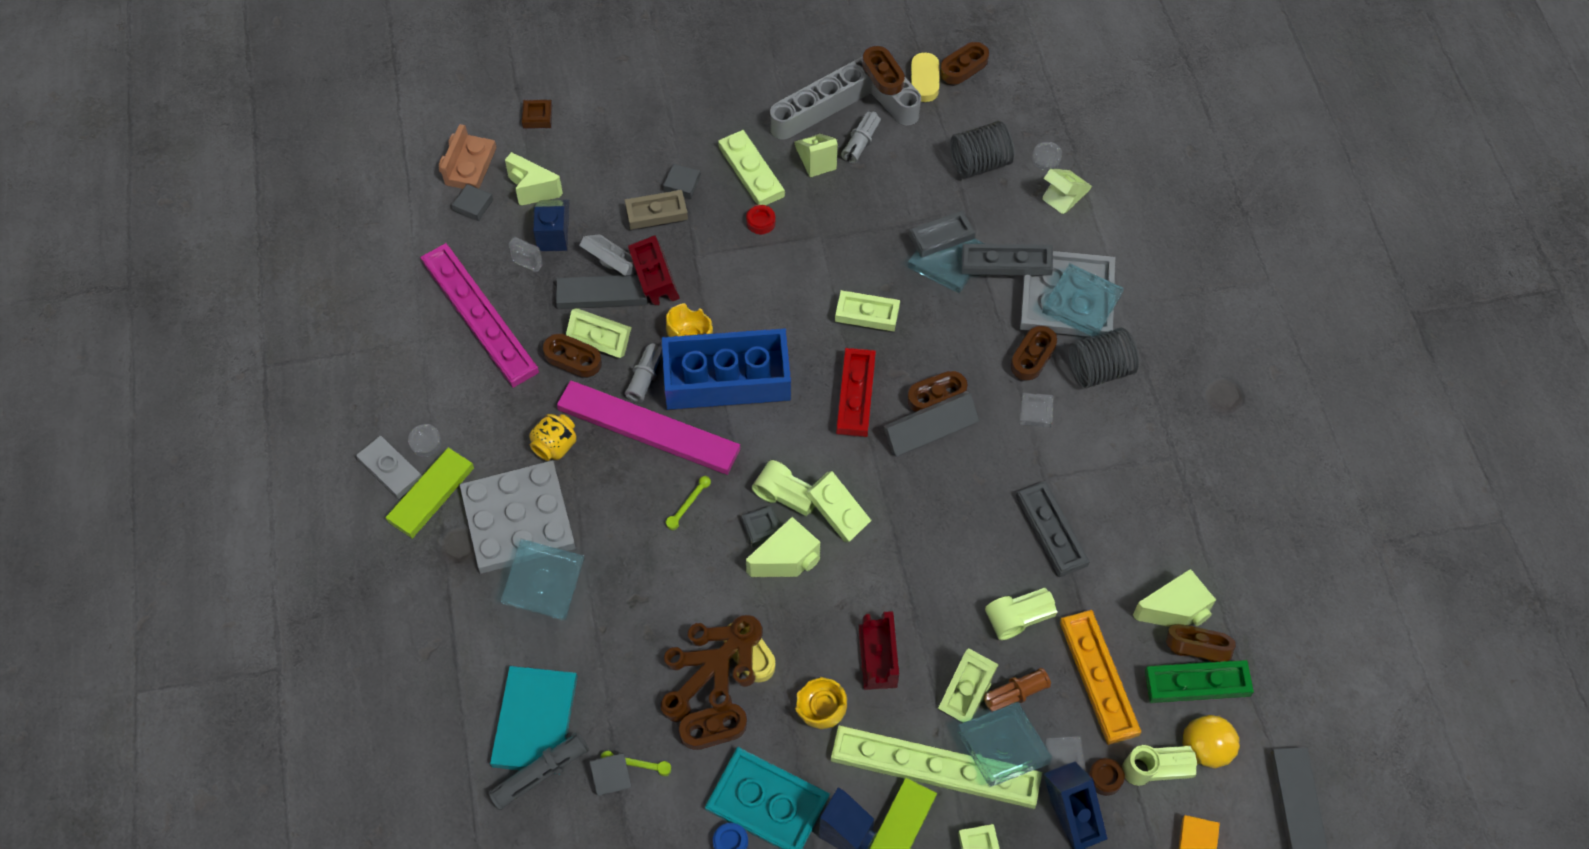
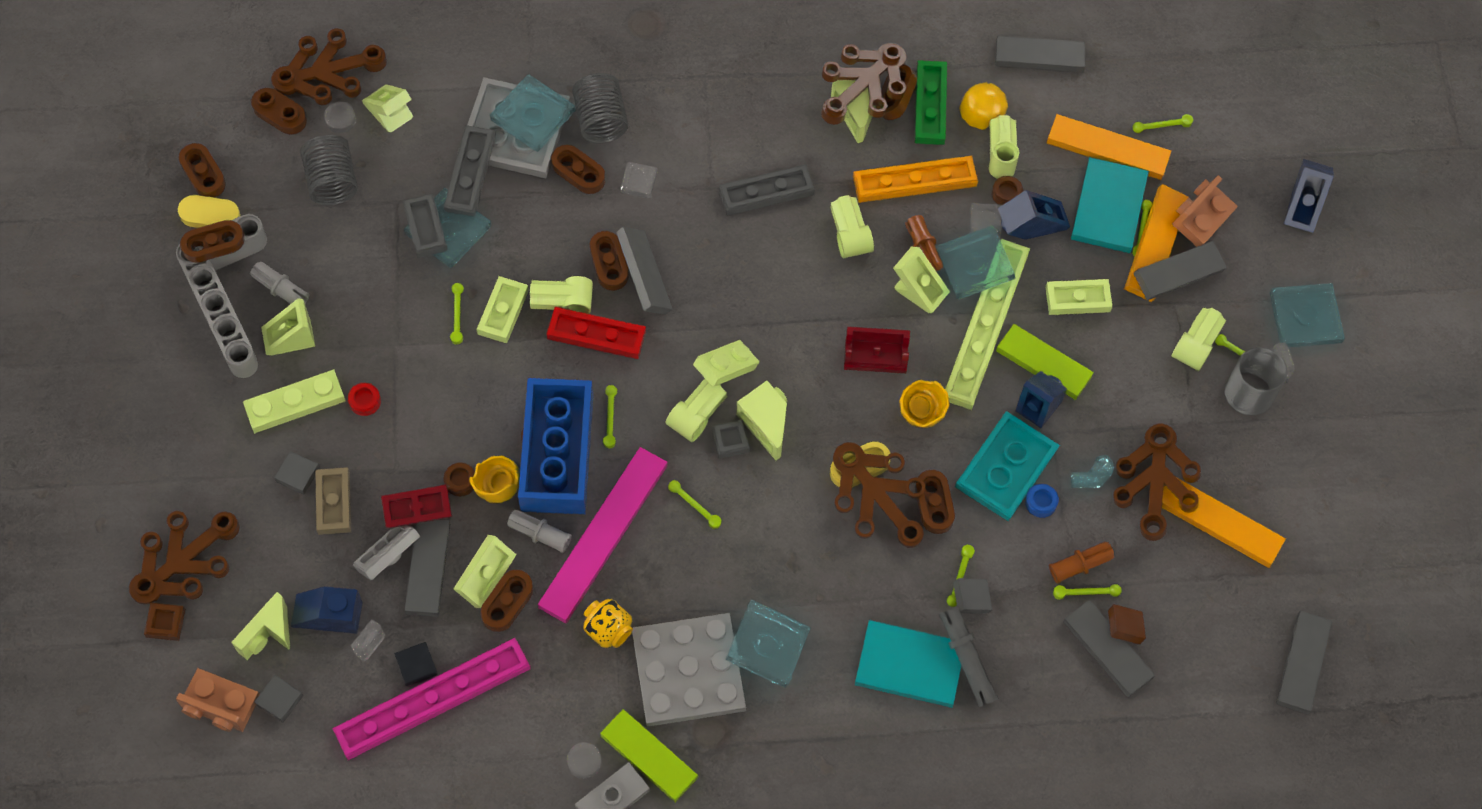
camera: 85 degrees left, 5 degrees up
(509, 296) = (416, 664): none -> black tile
(567, 96) = (180, 560): none -> reddish brown plant
(693, 299) = (457, 479): none -> reddish brown tile
(746, 420) = (609, 440): none -> lime hinge
(836, 281) = (456, 336): none -> lime hinge
(891, 363) = (571, 294): none -> yellowish green piece
(1045, 106) = (276, 110): none -> reddish brown plate
(1078, 111) = (325, 69): none -> reddish brown plant
(1201, 602) = (864, 78): none -> reddish brown plant

